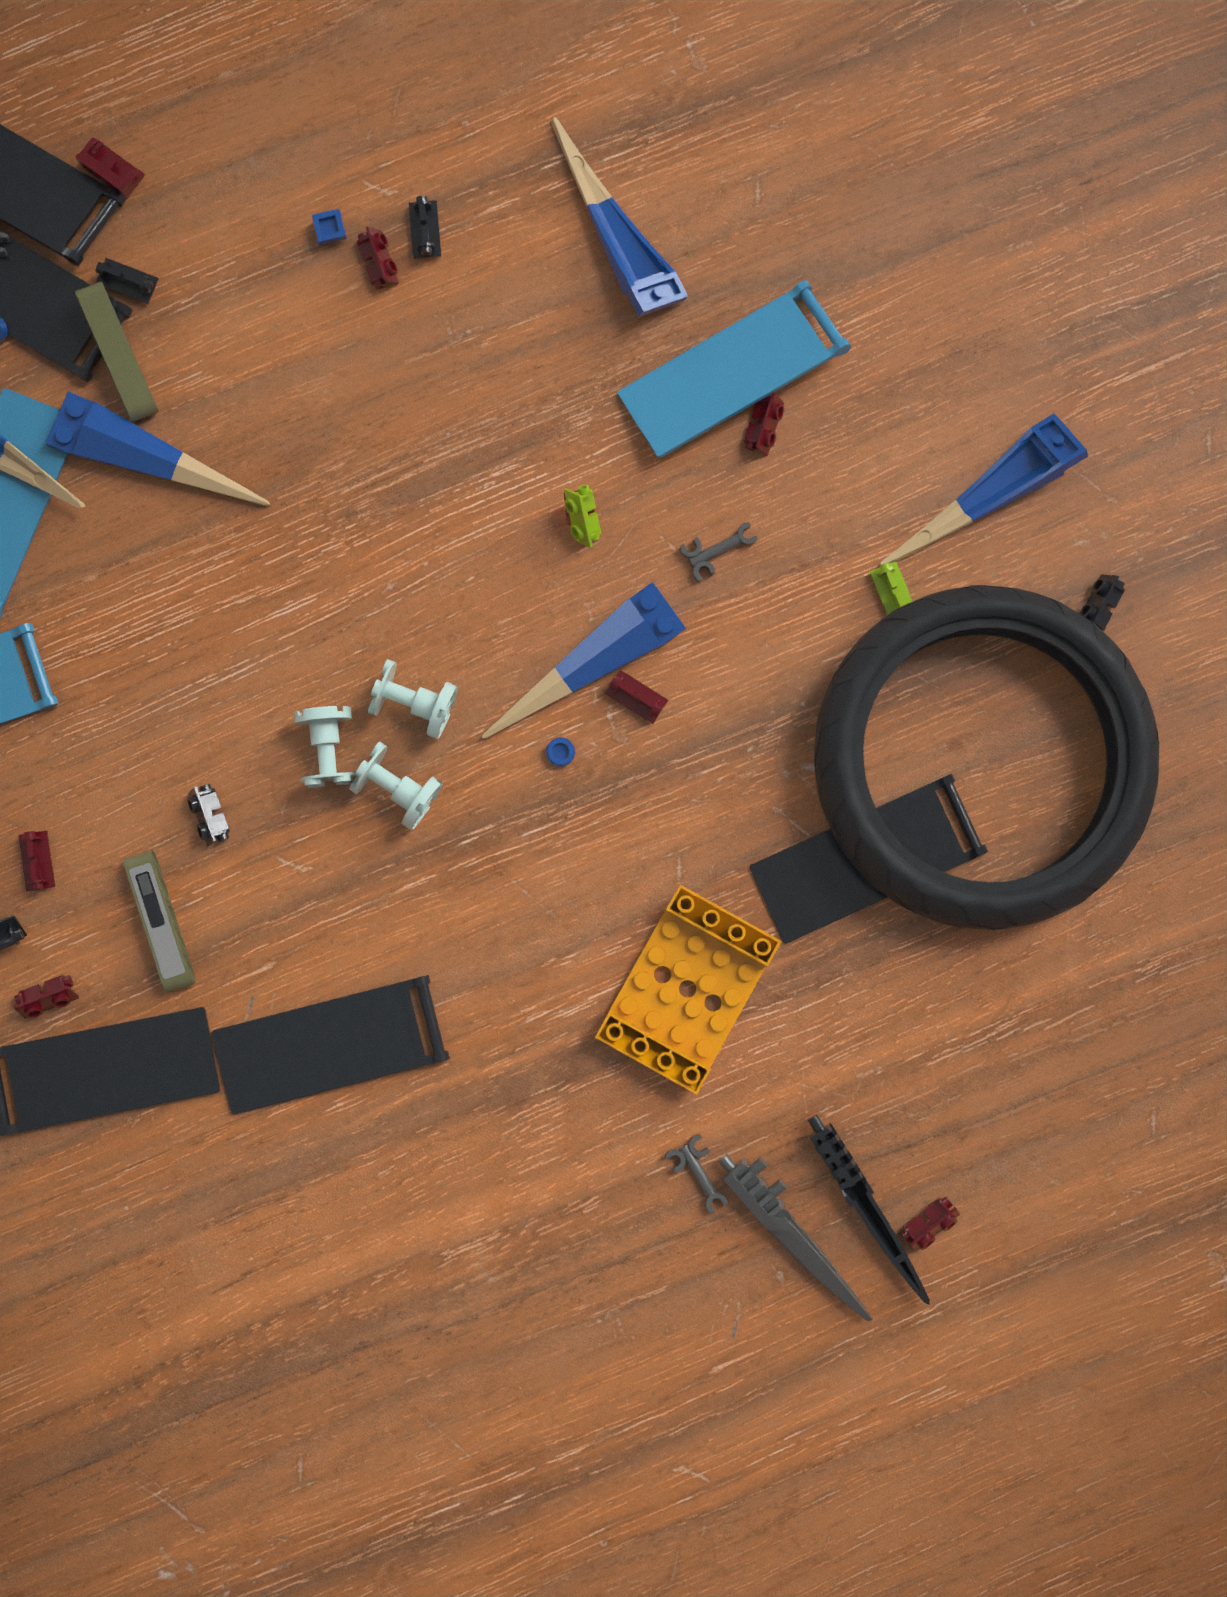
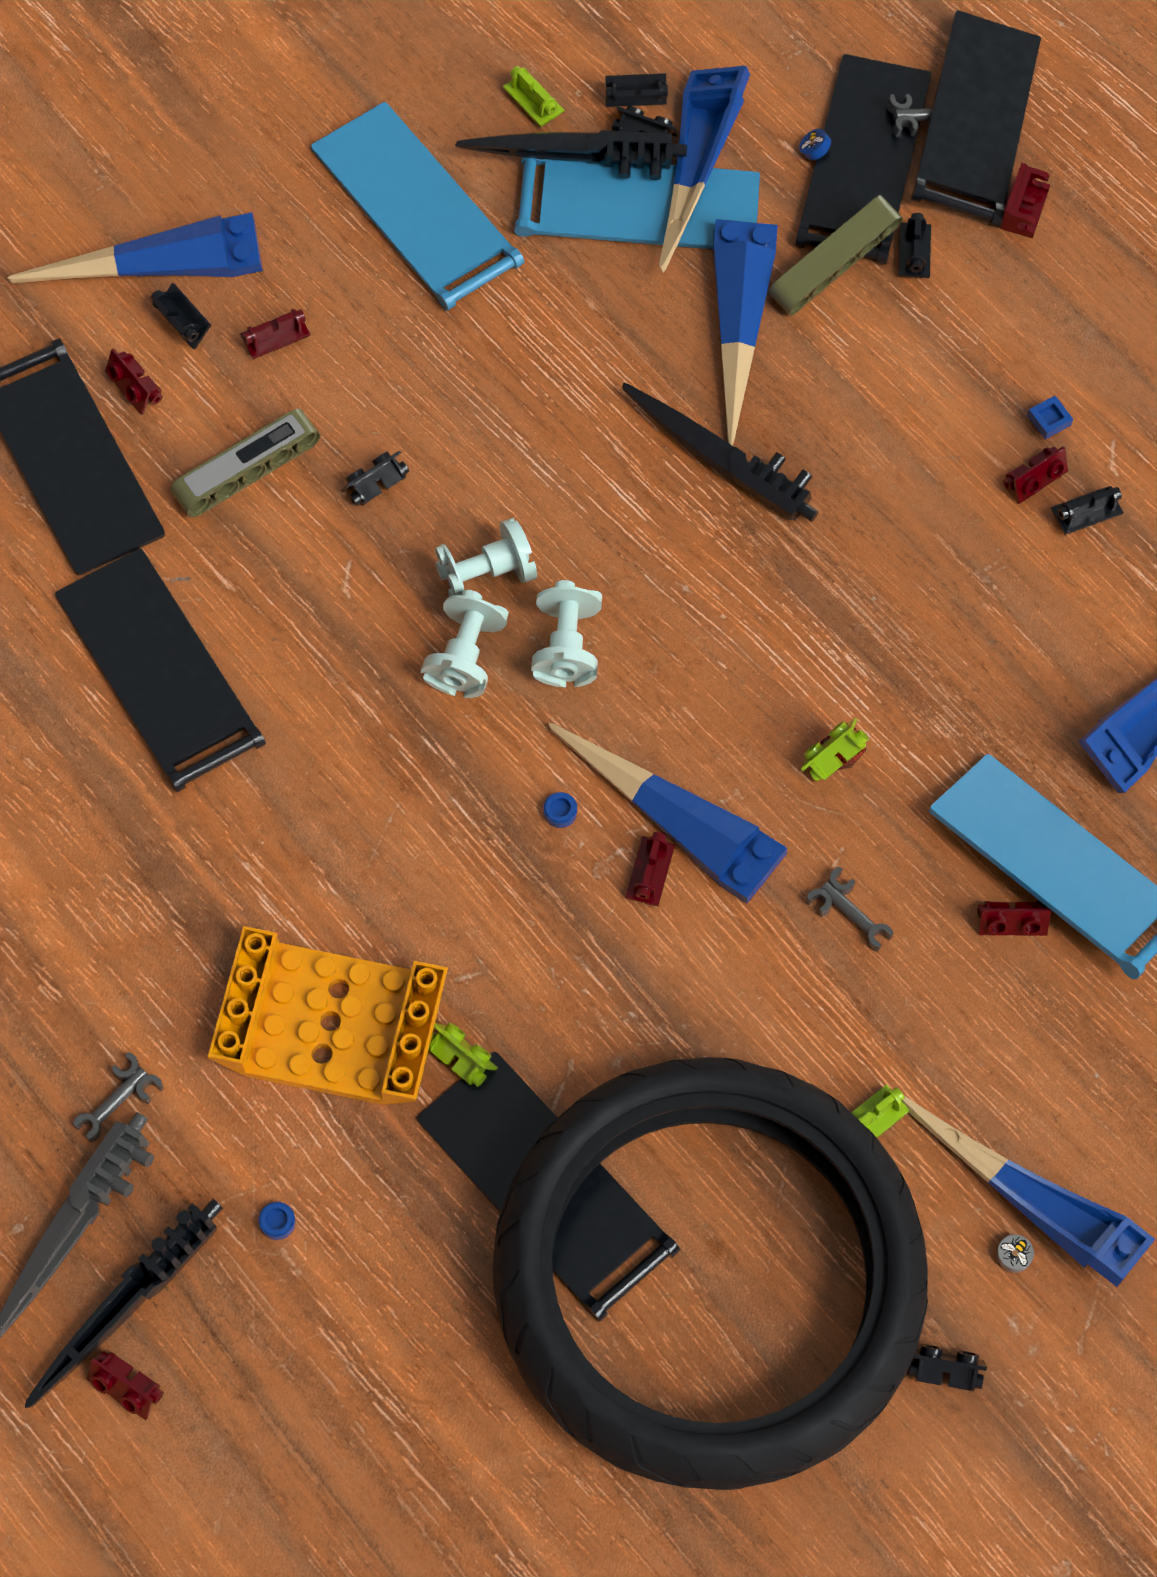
camera: 70 degrees right, 20 degrees down
(308, 495) = (753, 476): none -> black piece
(756, 885) = (472, 1059): none -> lime hinge
(836, 1074) = (277, 1220): none -> blue tile
(1030, 521) = (1015, 1253): none -> tile

